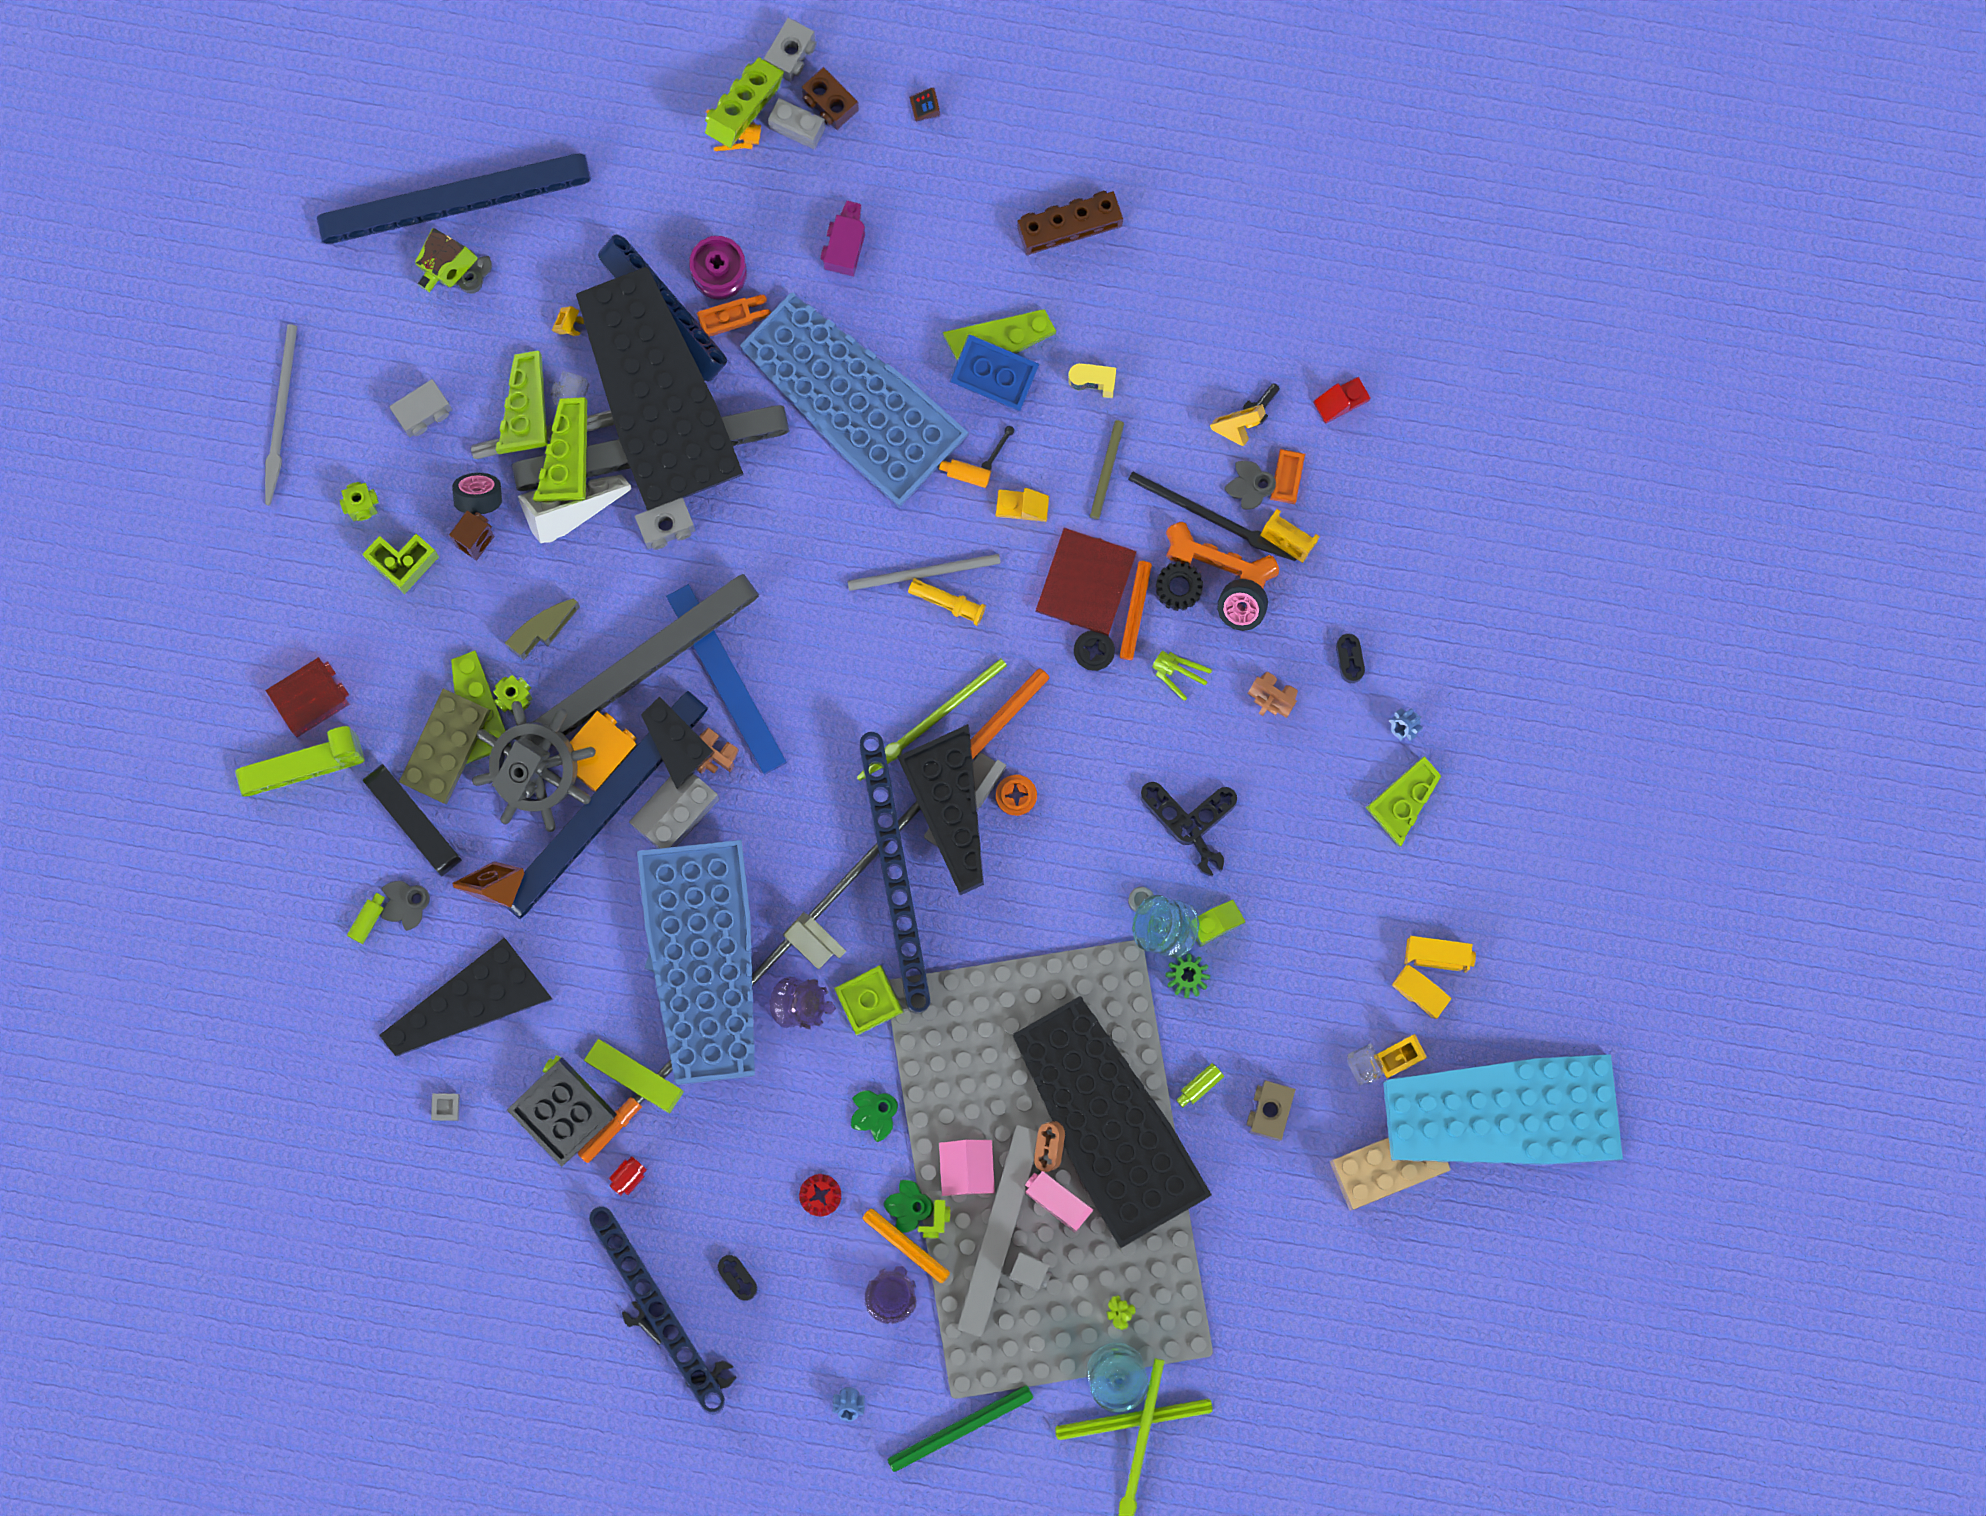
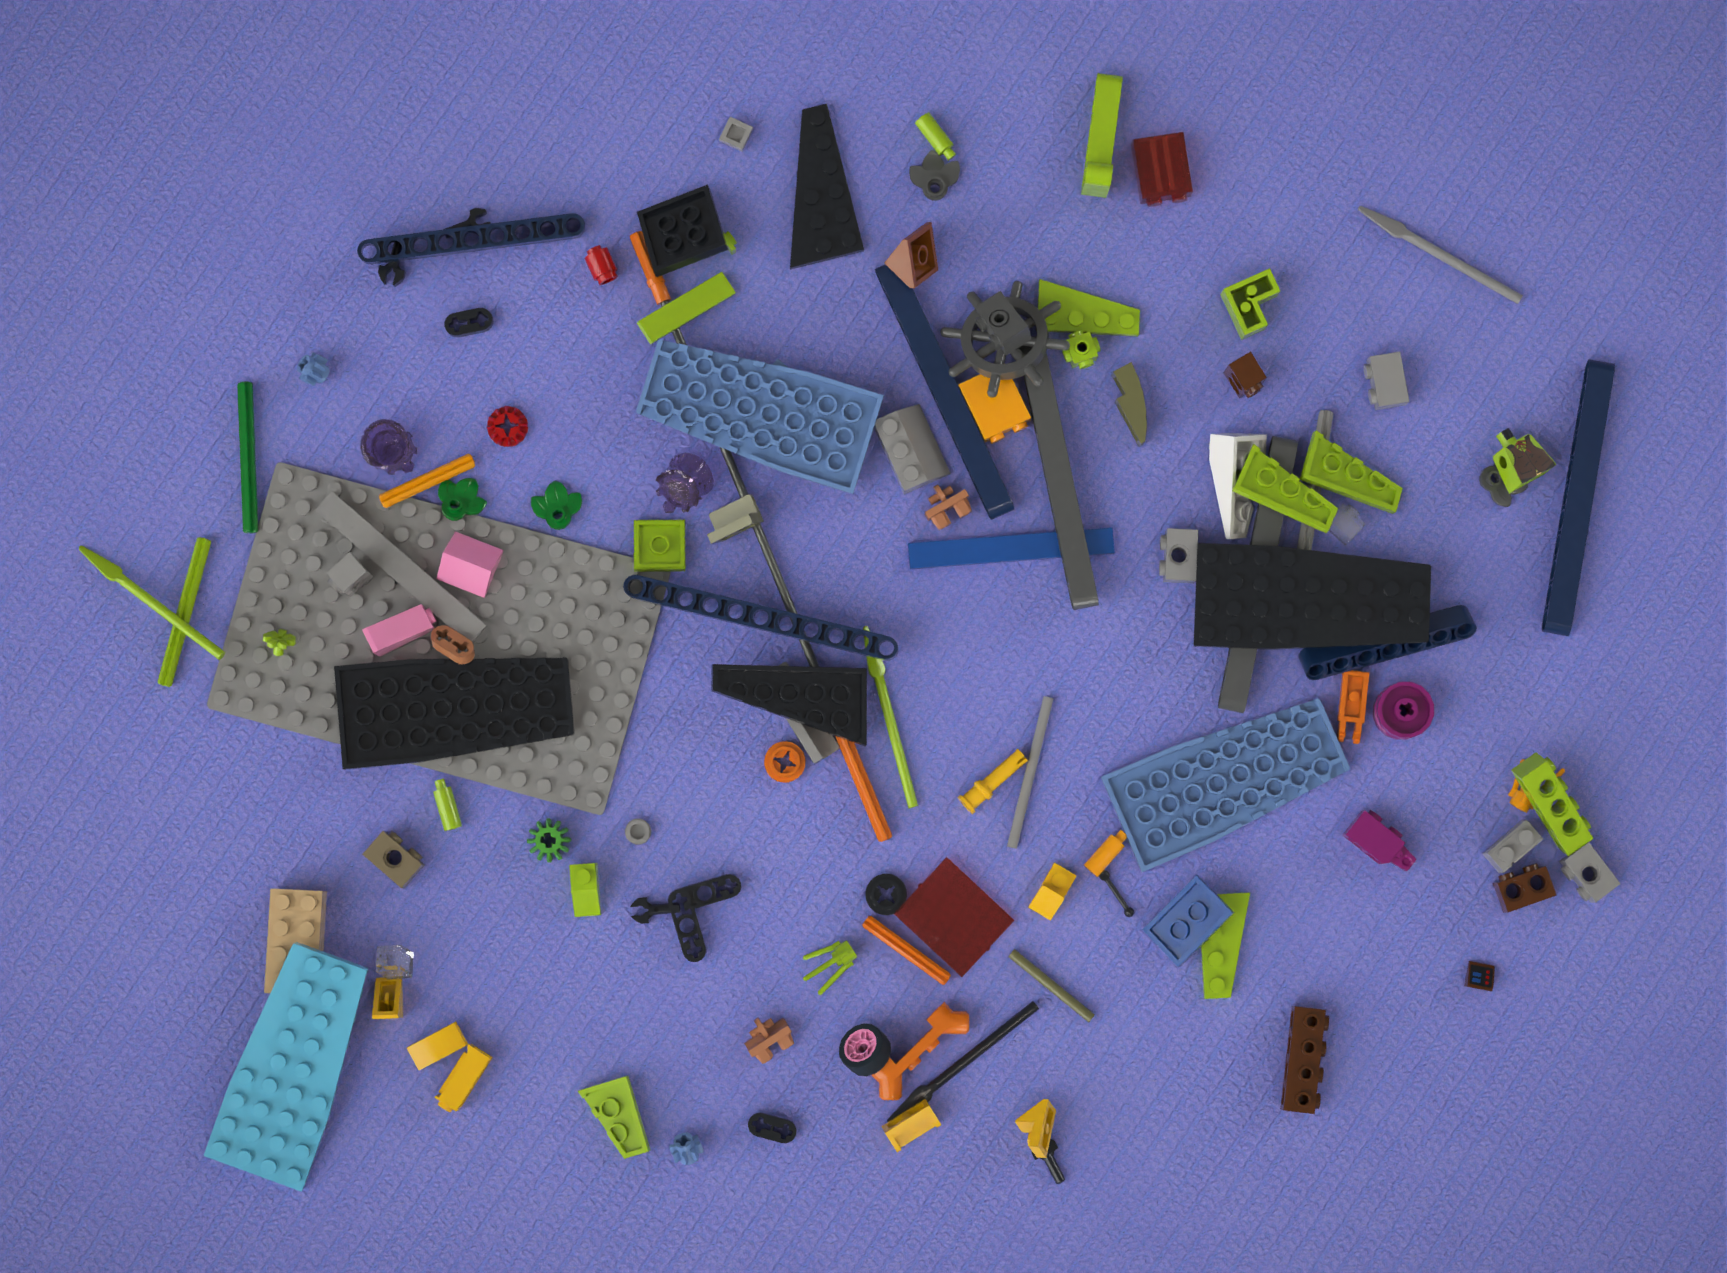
camera: 115 degrees right, 5 degrees up
(365, 507) = (1317, 295): lime brick -> none
(412, 820) = (1007, 213): black beam -> none
(444, 746) = (1061, 270): olive plate -> none
(477, 493) = (1283, 397): black wheel -> none
(566, 320) = (1413, 548): yellow tile -> none
(676, 742) = (970, 474): black wing -> none
(941, 1215) = (437, 522): lime bracket -> none
(1093, 377) = (1149, 1005): light yellow leg -> none
(1117, 1377) = (223, 611): clear light blue wheel -> none
(1165, 926) = (599, 838): clear light blue wheel -> none
(1179, 601) = (921, 1012): black tyre -> none
(1246, 485) = (977, 1108): dark grey plate -> none
(1288, 476) = (969, 1151): orange tile -> none
(1341, 399) = (1019, 1237): red slope -> none

